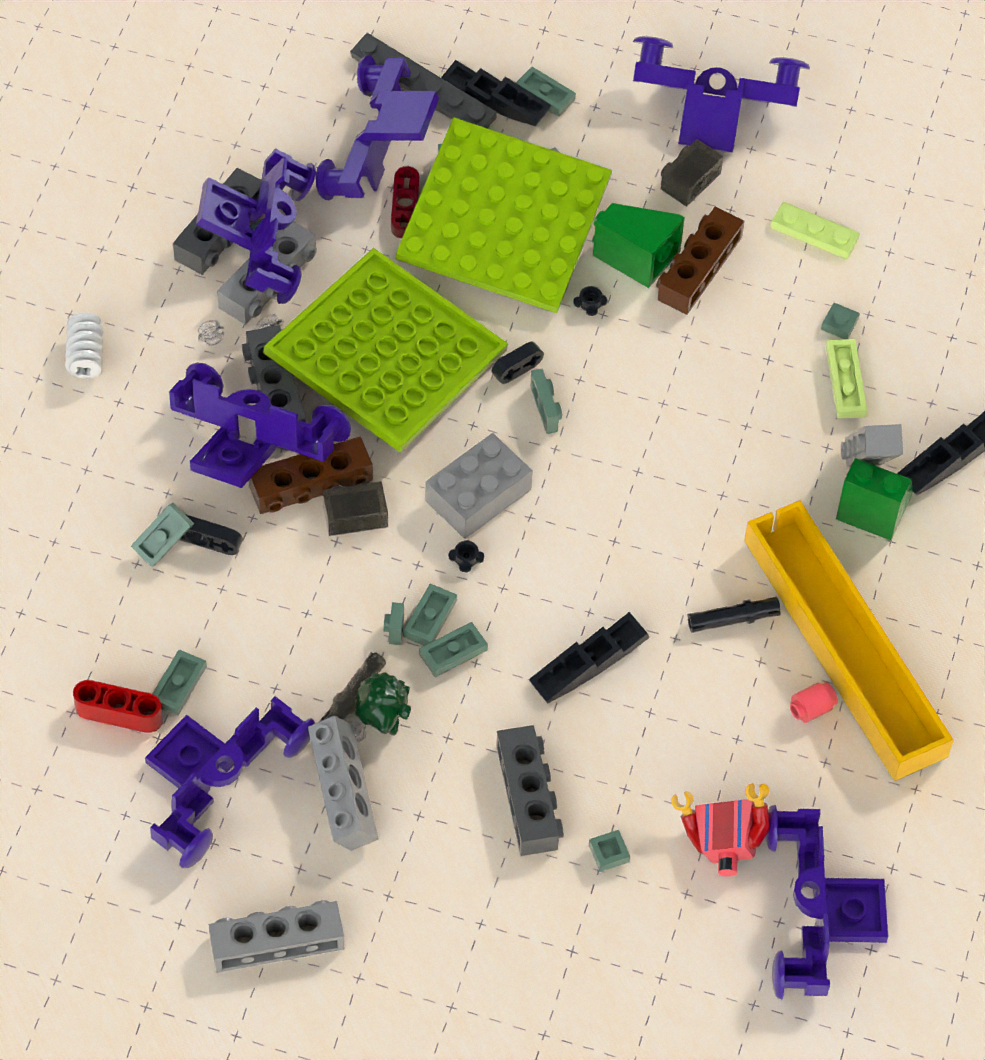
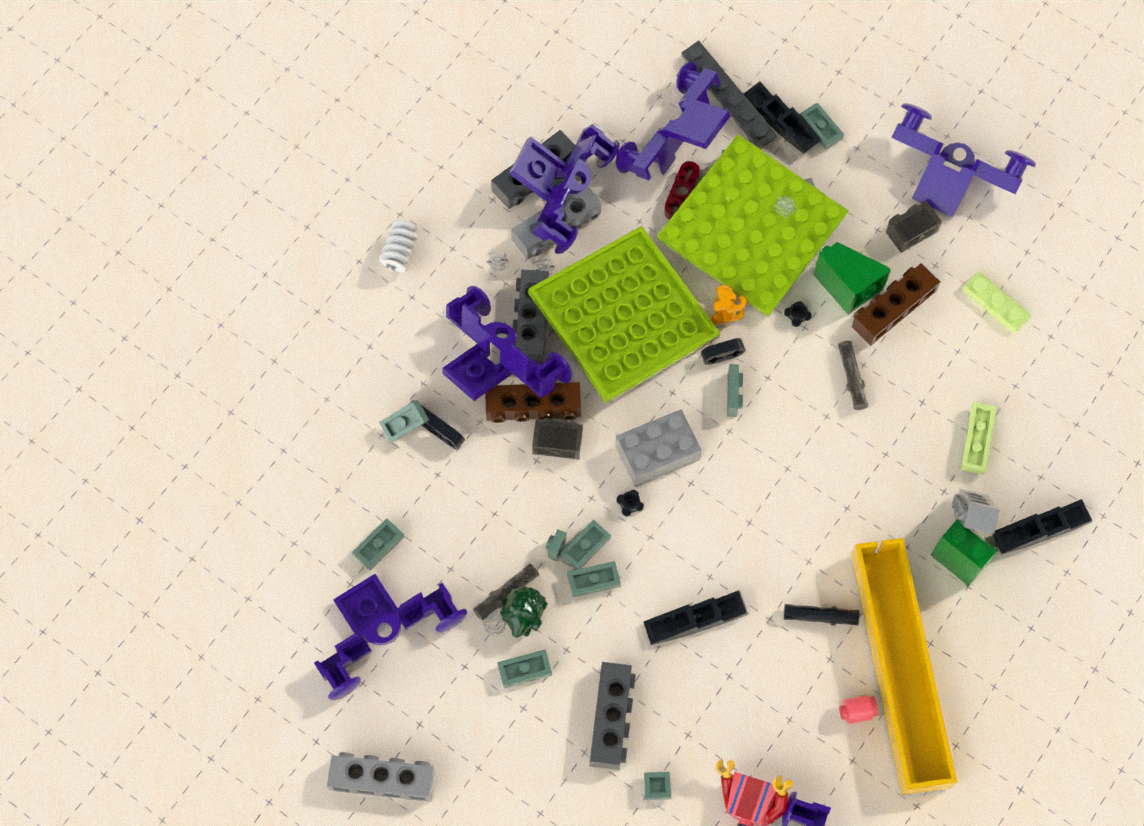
camera: 20 degrees right, 10 degrees up
(108, 695) = (321, 541): red beam -> none
(343, 783) = (470, 669): light grey brick -> none
(406, 769) = (524, 668): none -> sand green plate
(504, 311) = (725, 306): none -> light orange piece
(537, 181) = (785, 206): none -> clear plate
(684, 358) = (855, 384): none -> clear smoke pin
(840, 321) = (990, 386): sand green plate -> none

